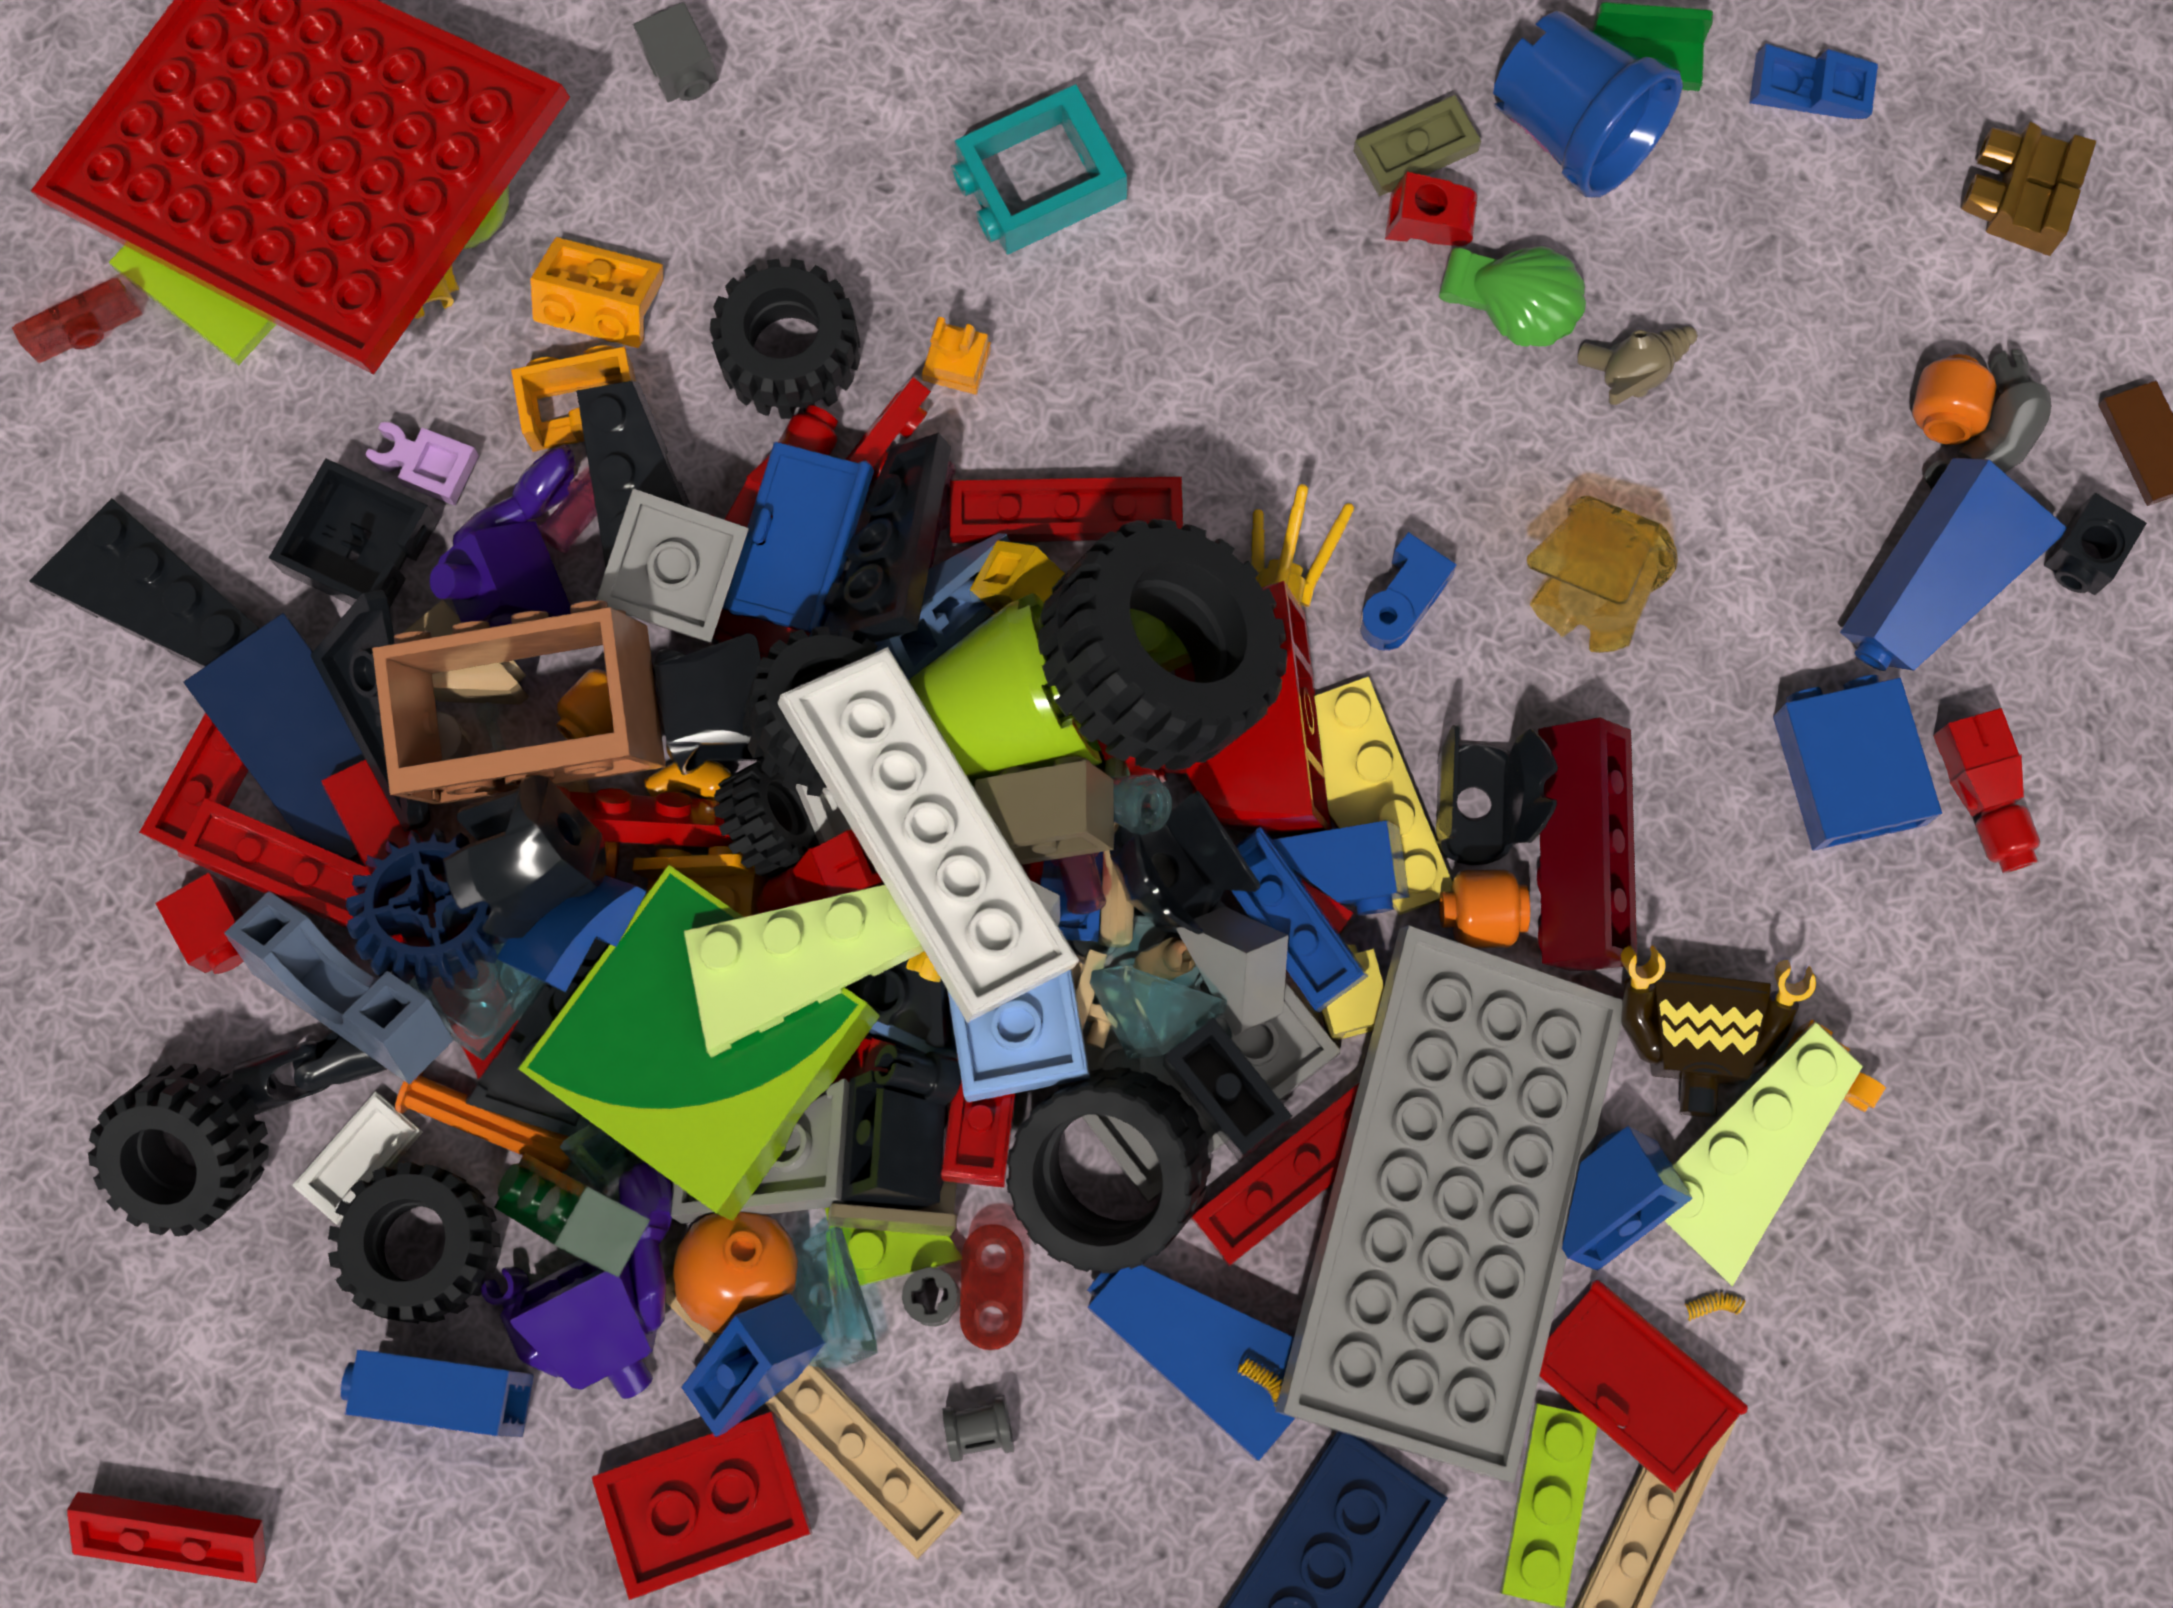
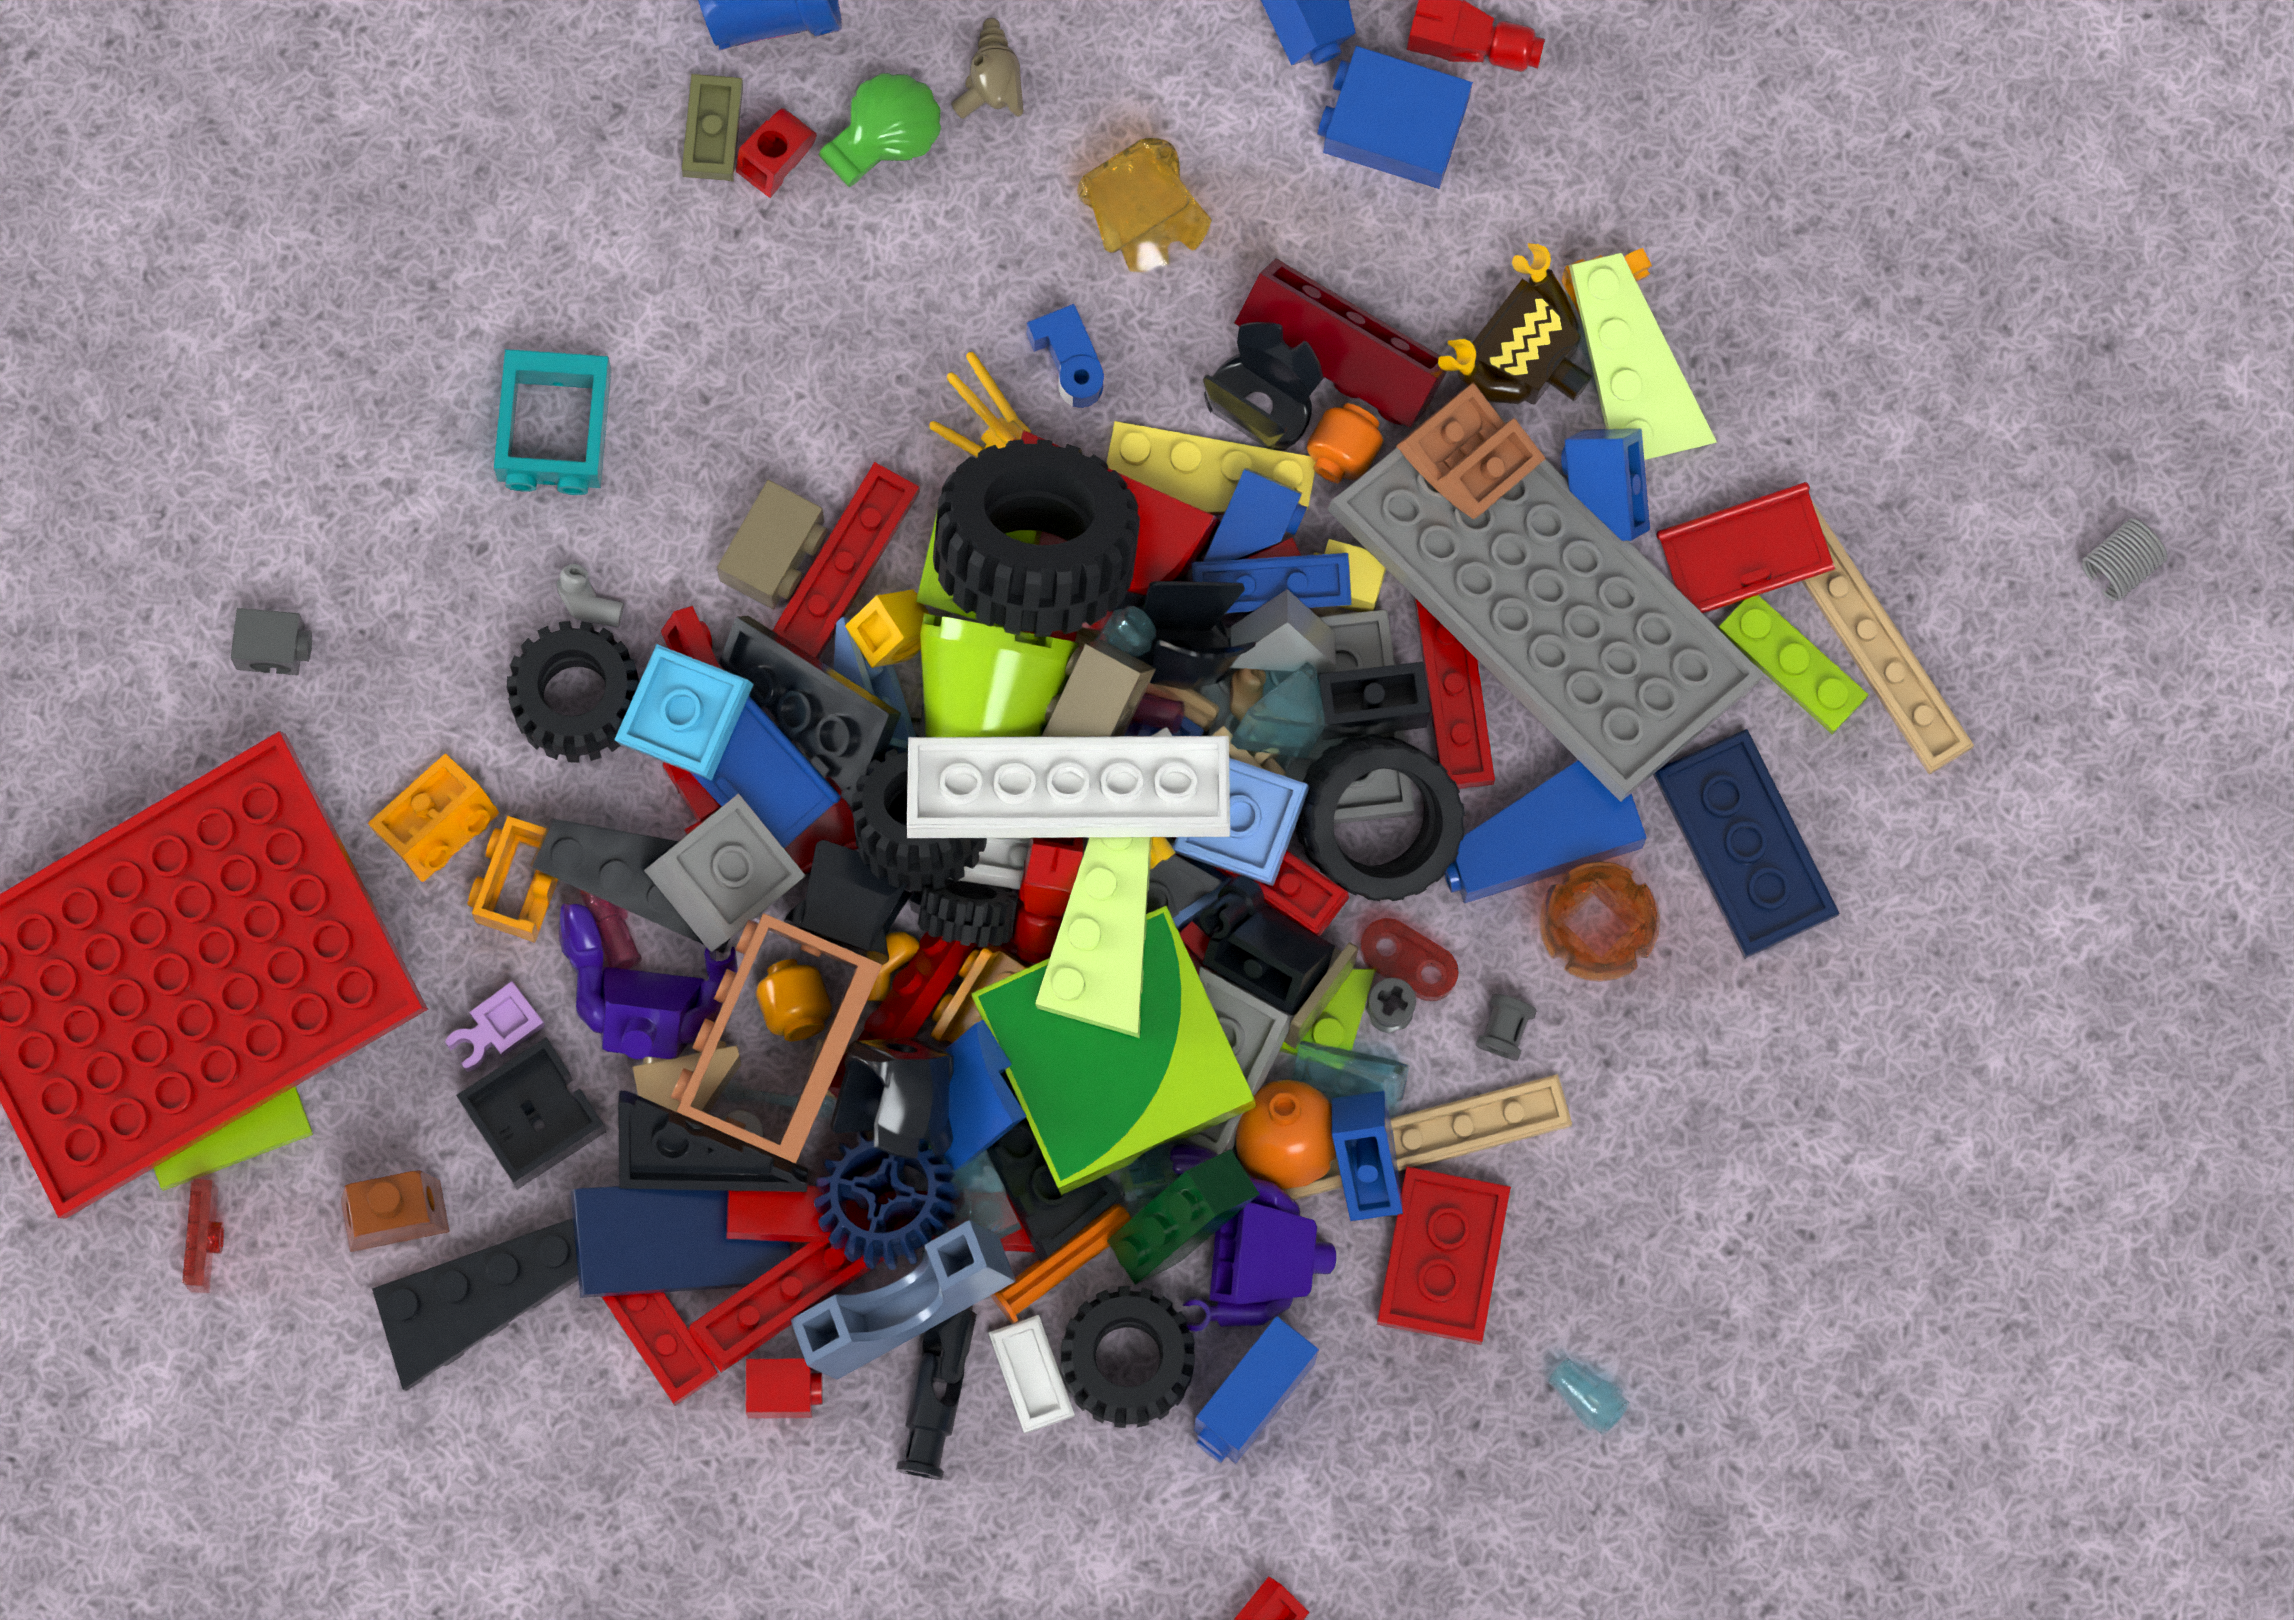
camera: 65 degrees left, 0 degrees up
(146, 1174) = (986, 1511): black tyre -> none
(183, 464) = (393, 1210): none -> dark orange torso
(809, 437) = (684, 712): none -> medium azure tile
(886, 300) = (582, 600): none -> light grey arm
(956, 357) = (667, 574): light orange piece -> none
(1038, 430) = (772, 545): none -> dark tan brick
(1184, 1484) = (1623, 896): none -> clear orange piece
(1257, 1376) = (1608, 796): yellow leg -> none
(1553, 1038) = (1470, 452): none -> nougat slope
(1729, 1308) = (1729, 455): yellow leg -> none

